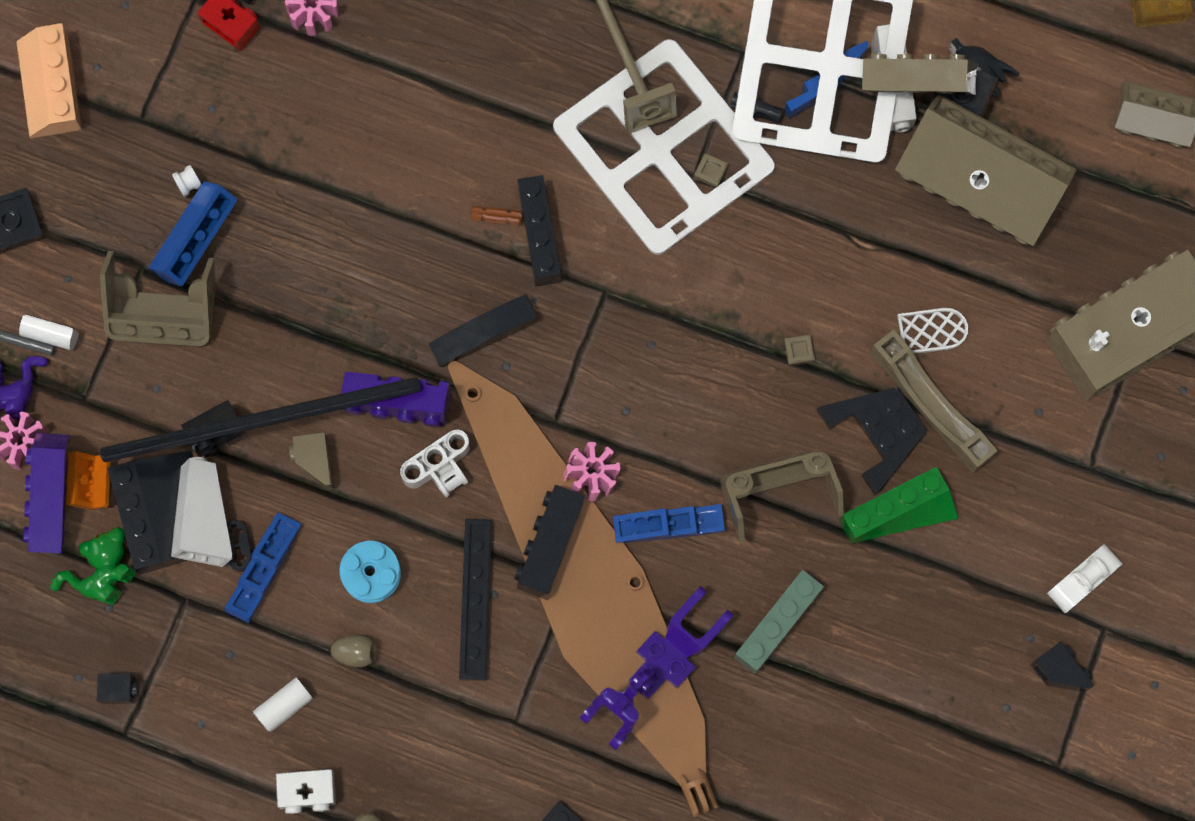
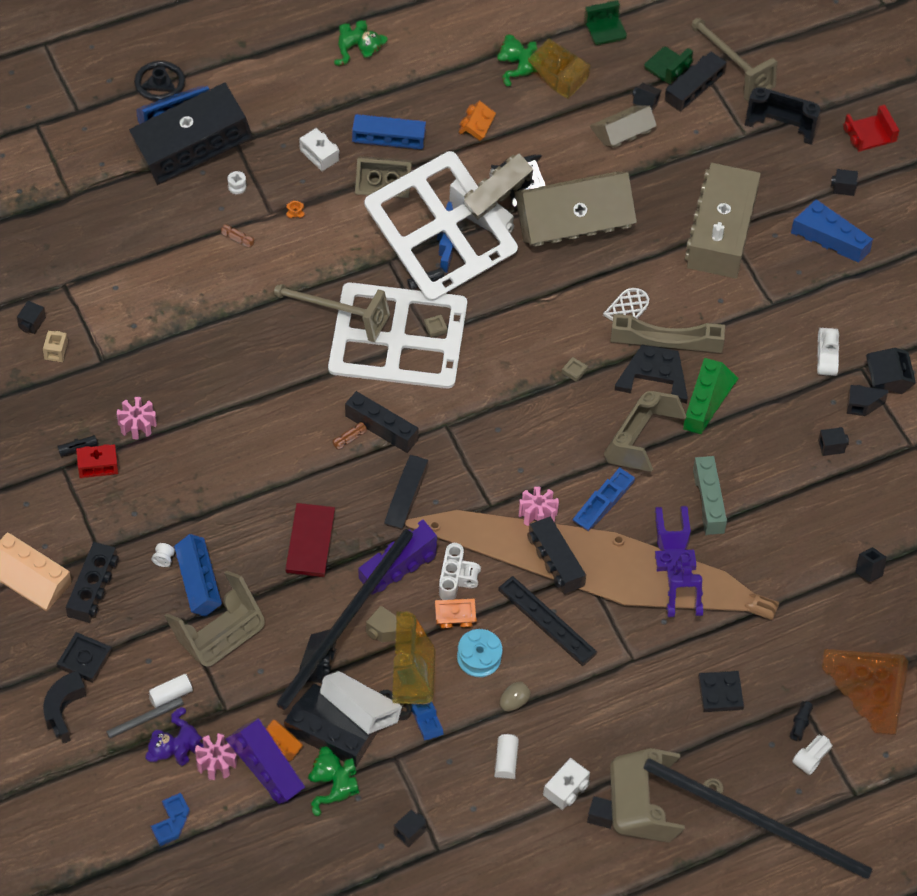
camera: 45 degrees left, 20 degrees down
(100, 135) = (86, 609): none -> black brick
(272, 545) = (416, 665): none -> clear yellow windscreen
(339, 295) = (310, 540): none -> dark red tile
(392, 507) = (455, 612): none -> orange bracket
(975, 685) = (833, 441): none -> black brick
(1123, 665) = (891, 370): none -> black slope

